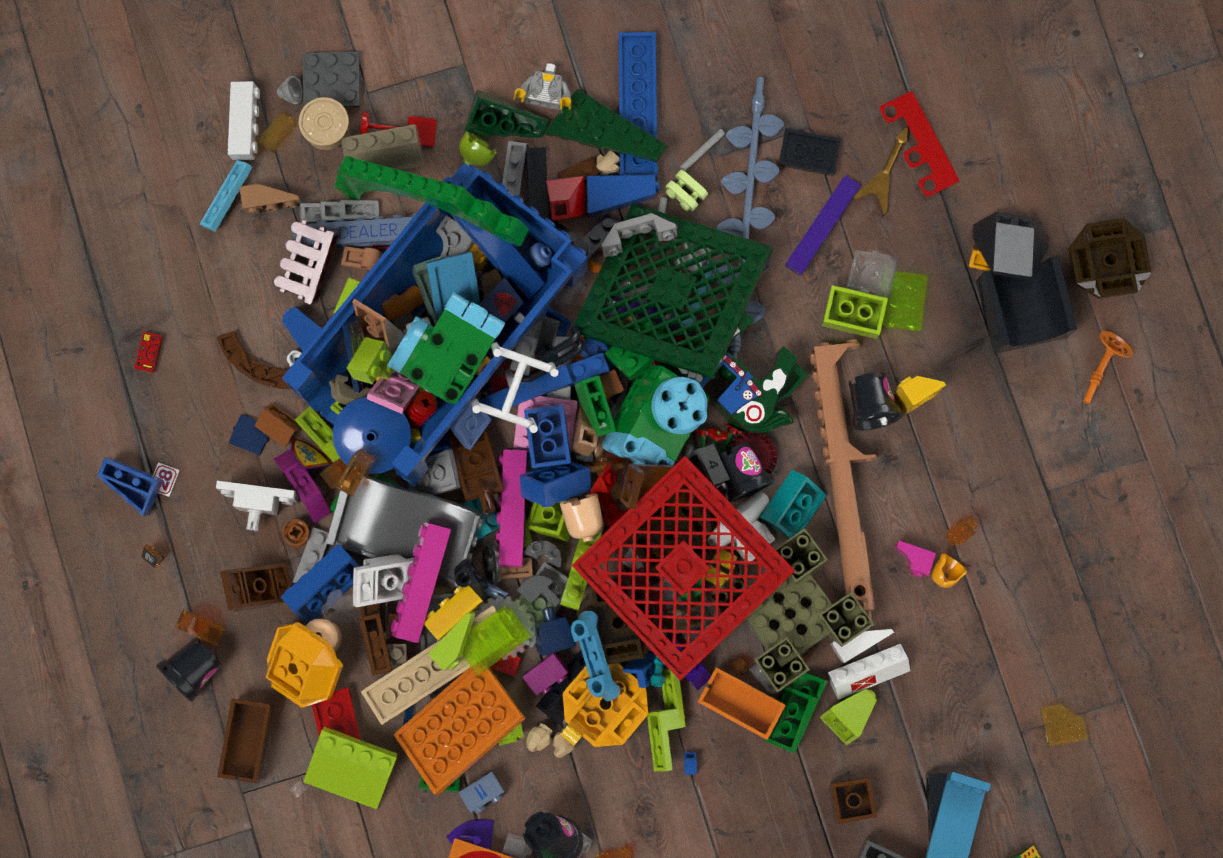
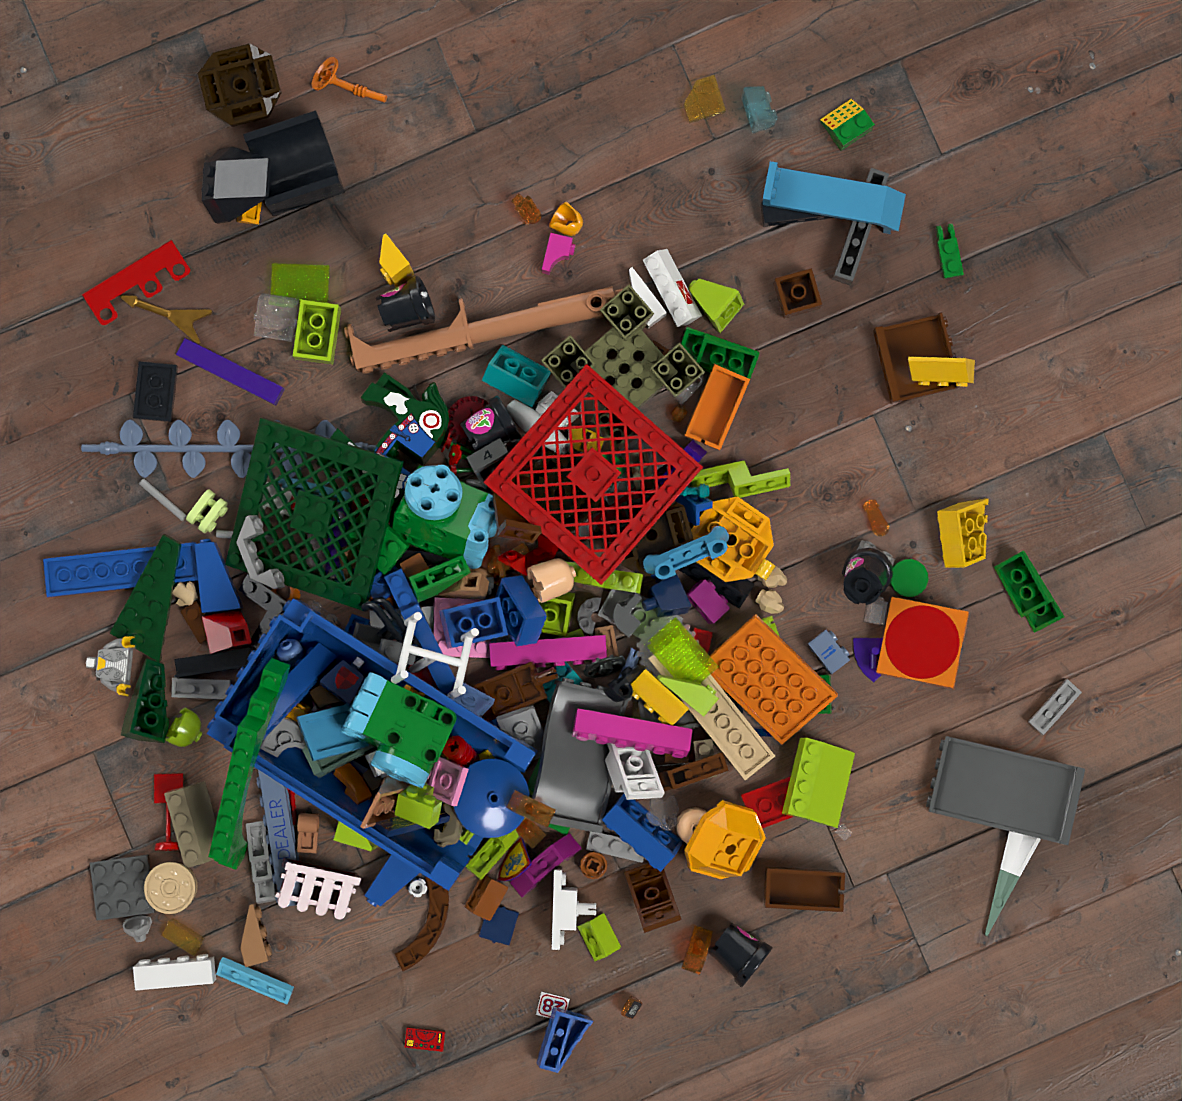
camera: 90 degrees left, 5 degrees up
(224, 532) = (599, 937): none -> lime panel
(690, 763) = (778, 452): blue piece -> none
(1049, 780) = (758, 108): none -> clear light blue slope

